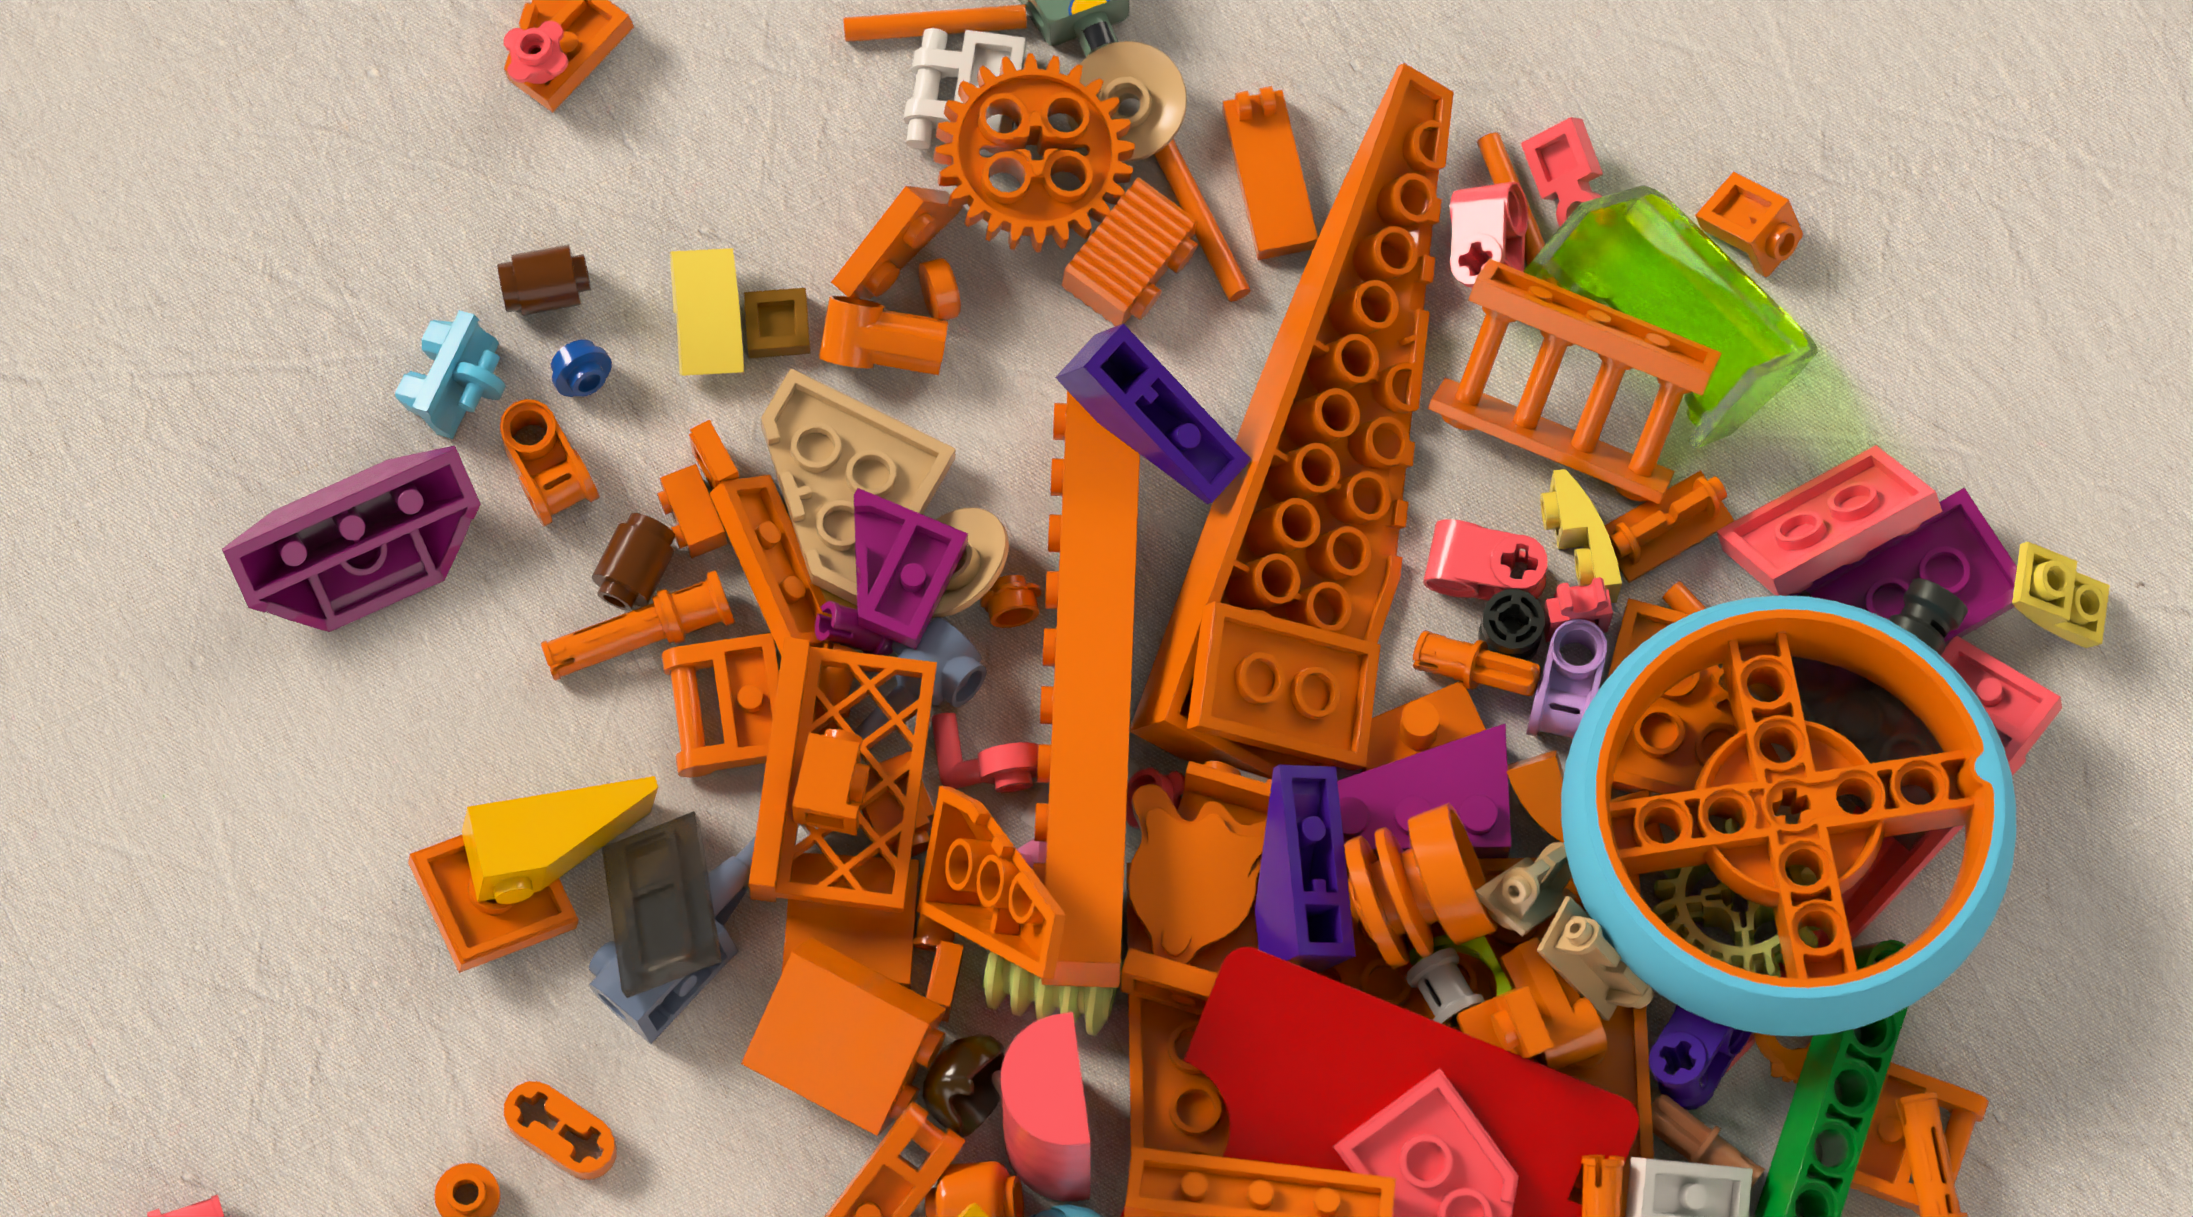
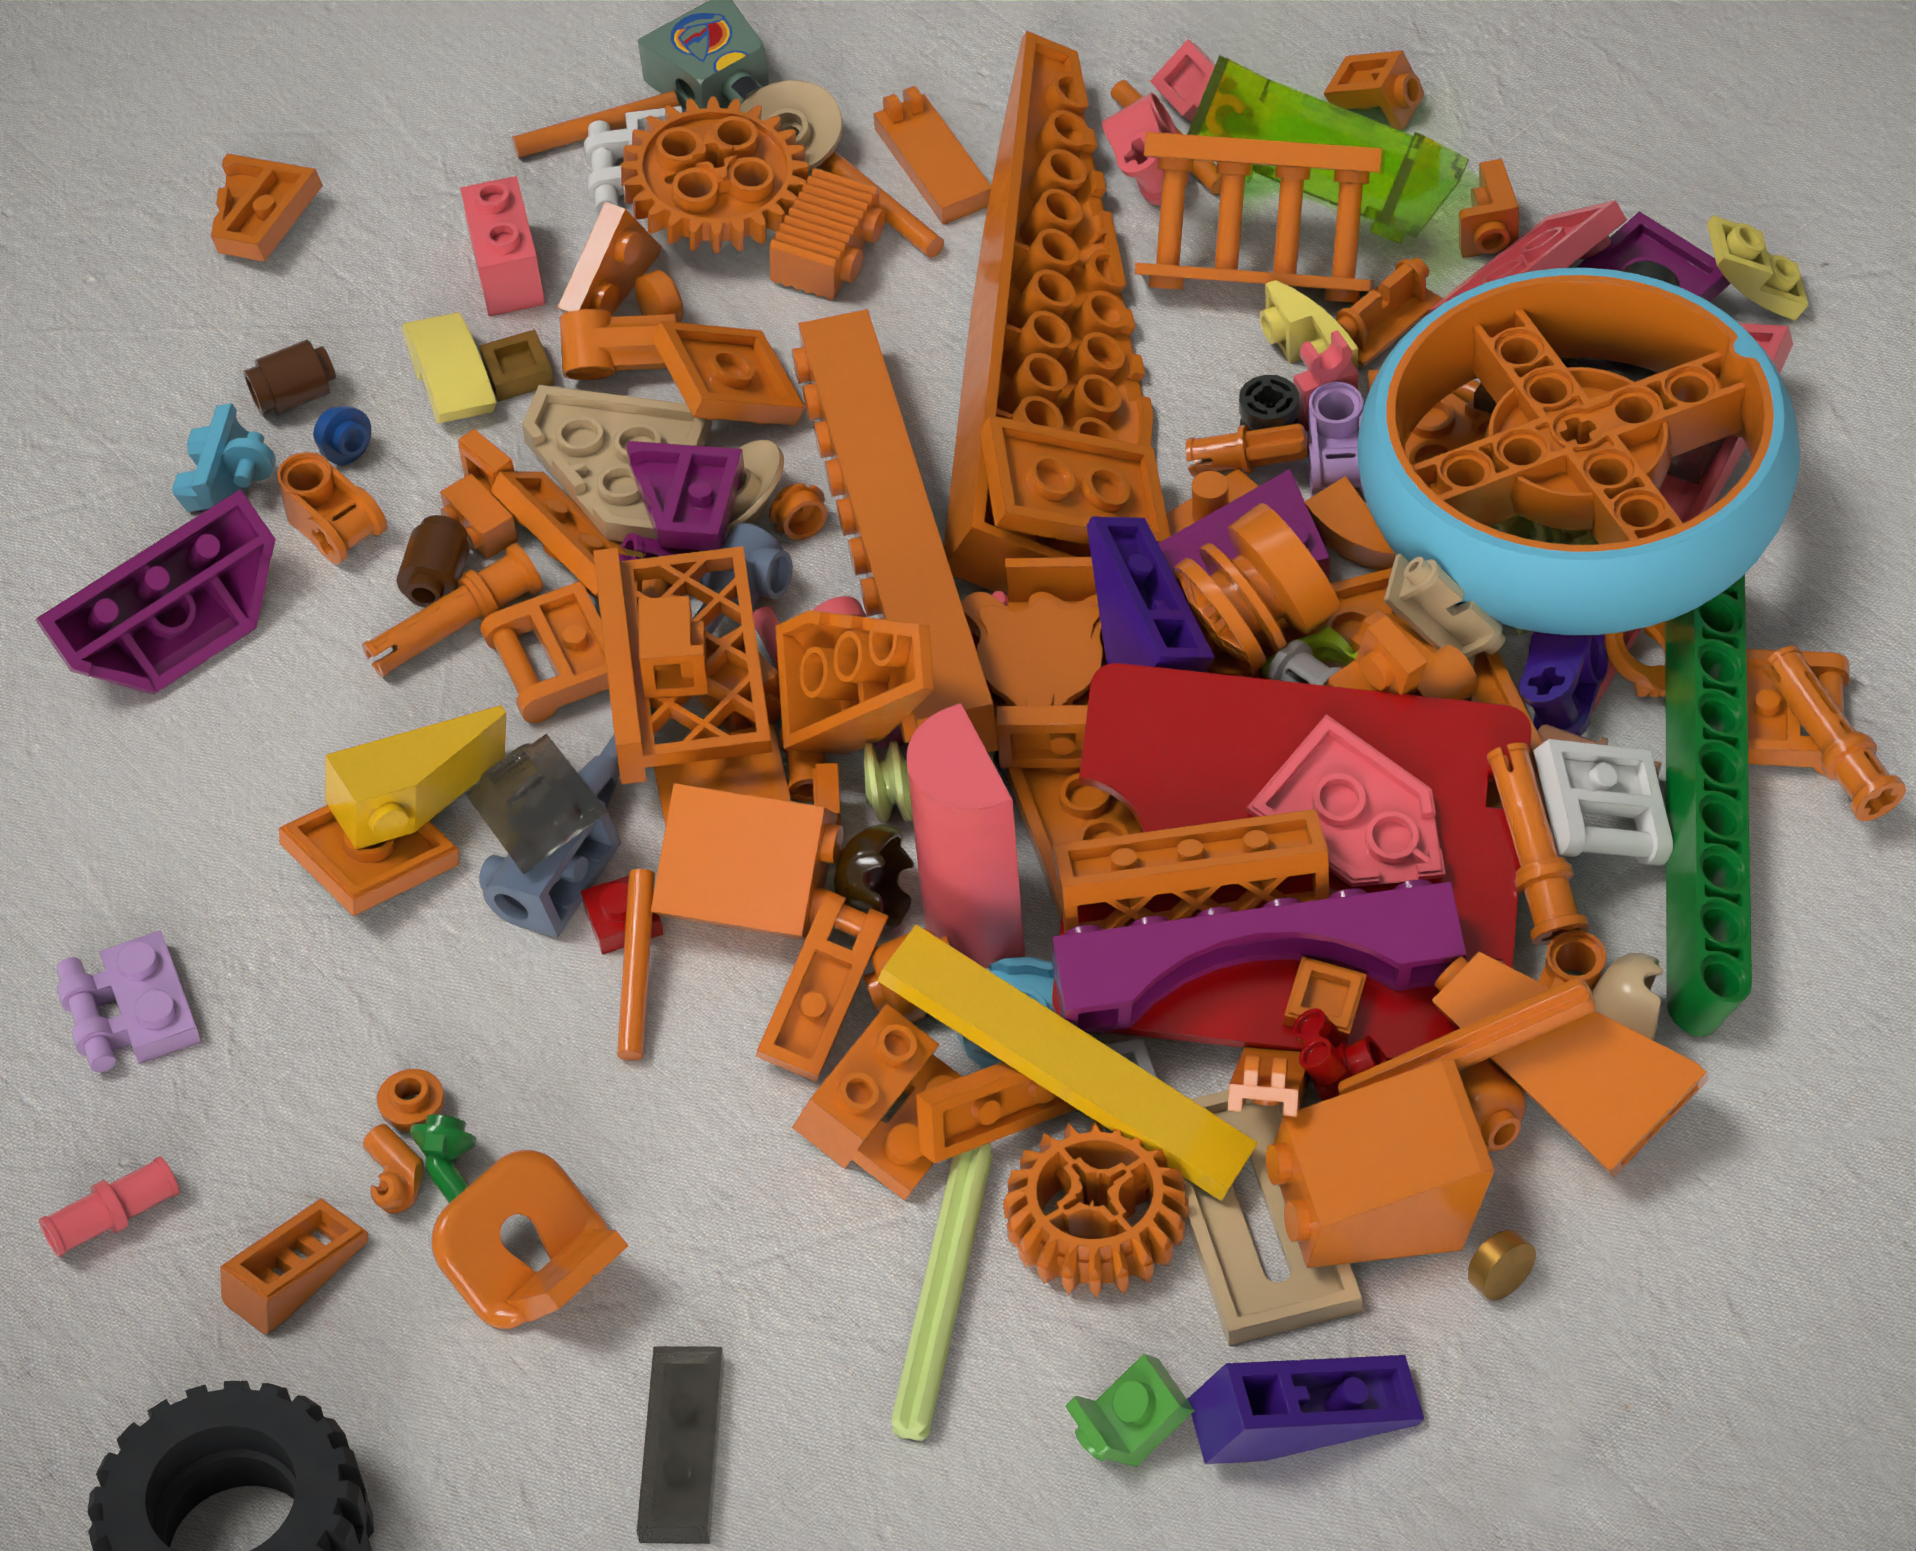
camera: 10 degrees left, 20 degrees down
(246, 1001) = (148, 996): none -> lavender plate
(537, 67) = (238, 210): coral plate -> none
(568, 1117) = (487, 1027): orange beam -> none
(714, 1111) = (635, 965): none -> orange bar
(716, 1035) = (607, 914): none -> red plate
(796, 173) = (502, 246): none -> coral brick
(982, 416) = (728, 373): none -> orange plate
(1152, 412) = (881, 310): dark purple slope -> none
(1479, 561) = (1214, 371): coral piece -> none
(1528, 890) = (1360, 570): tan hinge -> none
(1821, 434) = (1494, 214): none -> orange bracket

